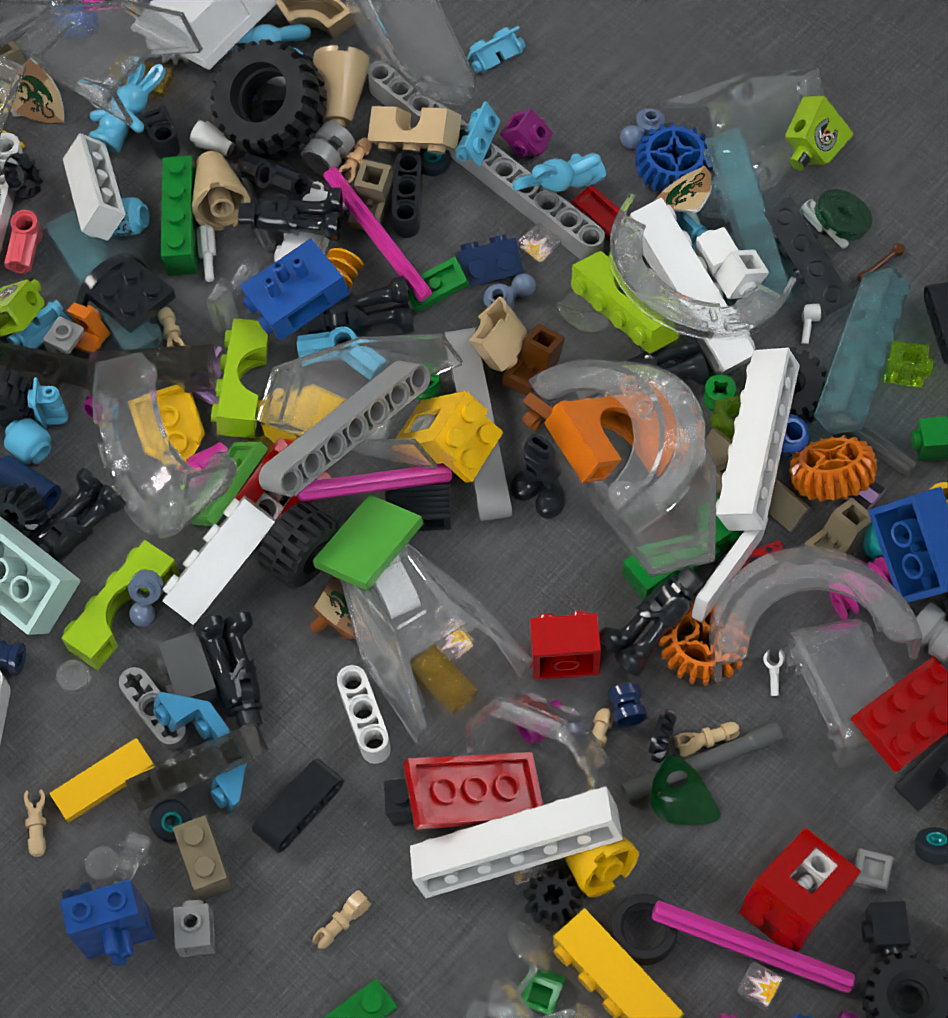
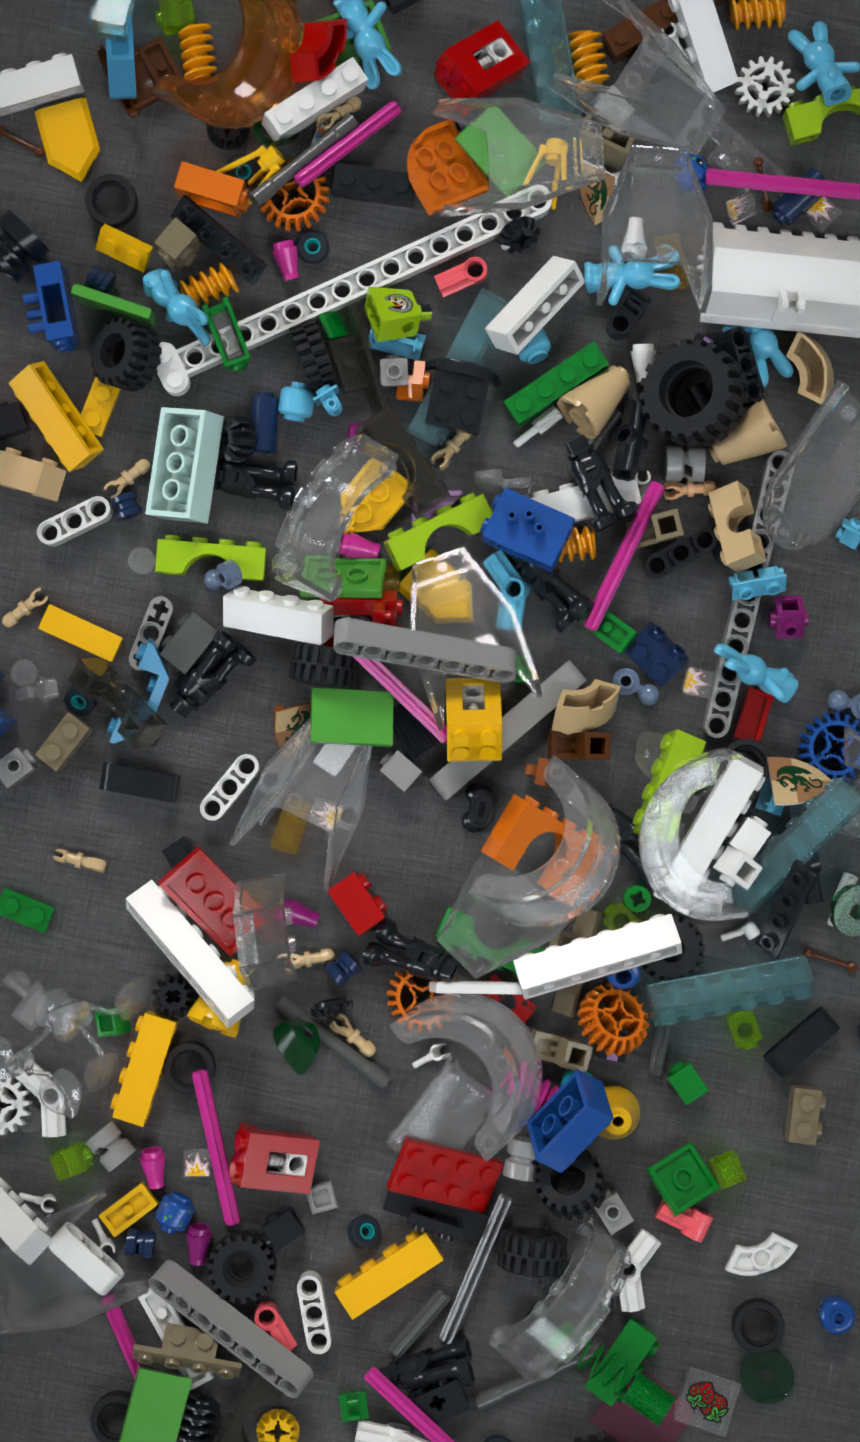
camera: 60 degrees right, 25 degrees up
(453, 537) = (399, 769): none -> light grey brick

